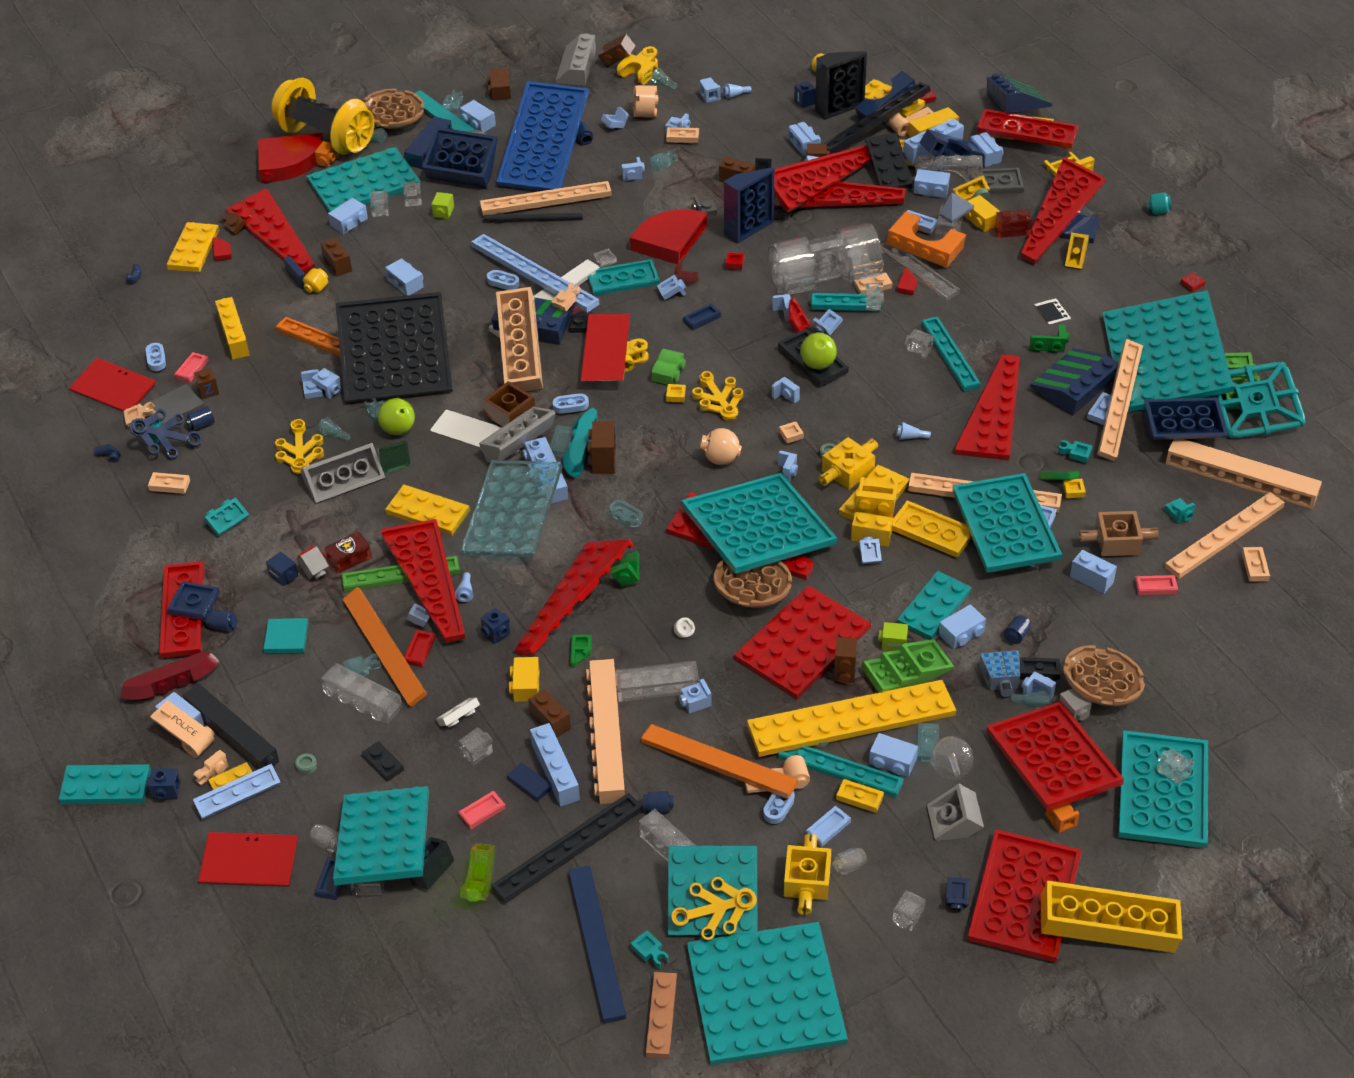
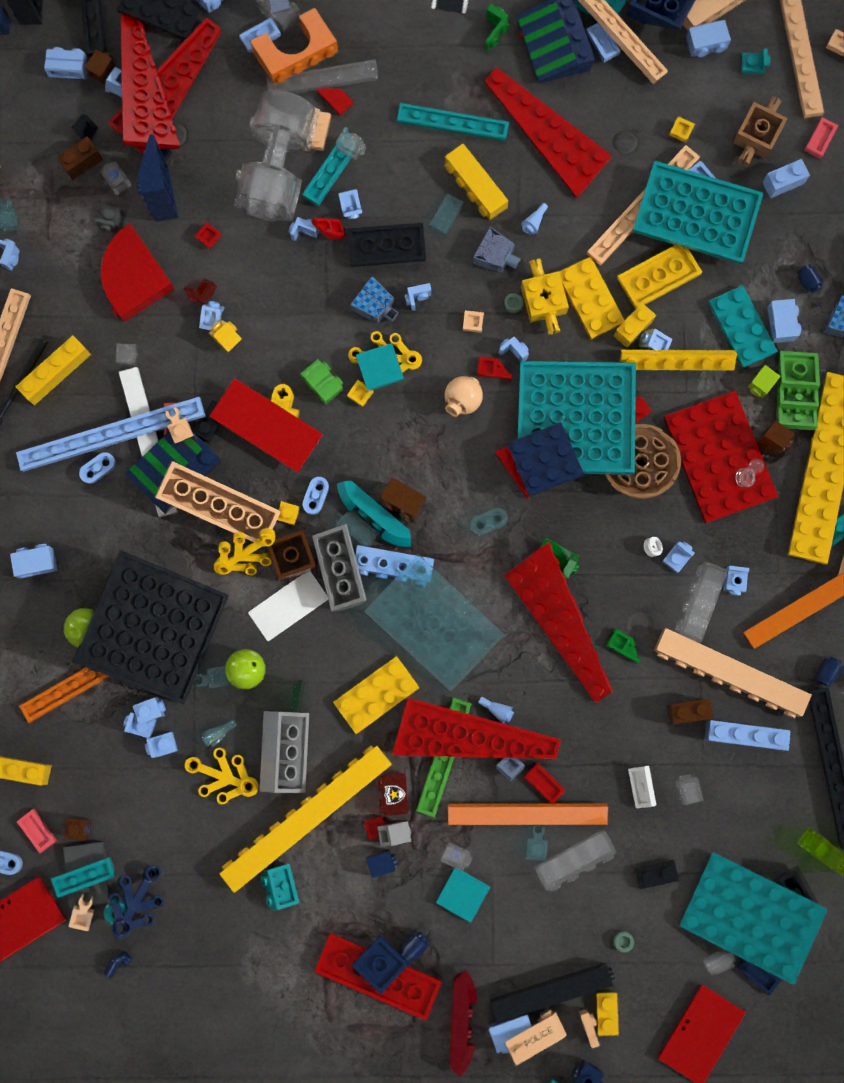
camera: 60 degrees left, 35 degrees up
(168, 399) = (83, 877): none -> teal plate
(169, 483) = (199, 922): light nougat plate -> none
(199, 418) = (125, 856): dark blue brick -> none
(236, 791) = (627, 1016): light blue plate -> none
(294, 507) = (306, 818): none -> yellow brick
(301, 403) = (161, 745): none -> light blue bracket
(317, 613) = (456, 856): none -> clear brick
(475, 375) = (225, 565): none -> yellow plant
(482, 810) = (754, 816): coral tile -> none
(495, 625) = (557, 712): dark blue brick -> none
(525, 678) = (637, 711): yellow brick -> none
(529, 782) = (746, 763): dark blue tile -> none
(544, 396) = (288, 513): none -> yellow plate
(561, 226) = (53, 370): none -> yellow brick
(624, 277) = (163, 351): teal tile -> none
(661, 297) = (225, 334): none -> yellow brick
(688, 650) = (678, 556): none -> light blue bracket
(702, 317) = (266, 310): dark blue tile -> none
(703, 510) = (545, 459): none -> dark blue plate
(705, 390) = (379, 367): none -> teal tile
(759, 368) = (374, 302): none -> torso
(761, 462) = (492, 369): none -> red tile
(809, 660) = (746, 476): none -> clear plate
(818, 351) = (400, 239): lime piece -> none
(861, 419) = (495, 252): none -> sand blue torso
(867, 573) = (680, 359): none -> yellow plate
(869, 382) = (446, 214): none -> clear light blue tile
(875, 502) = (613, 312): yellow plate -> none
(910, 384) = (476, 182): none -> yellow brick
(919, 343) = (428, 141): clear brick -> none
(1059, 475) = (661, 130): green tile -> none
(1076, 451) = (640, 96): teal plate -> none
(1170, 469) = (708, 38): none -> light blue brick

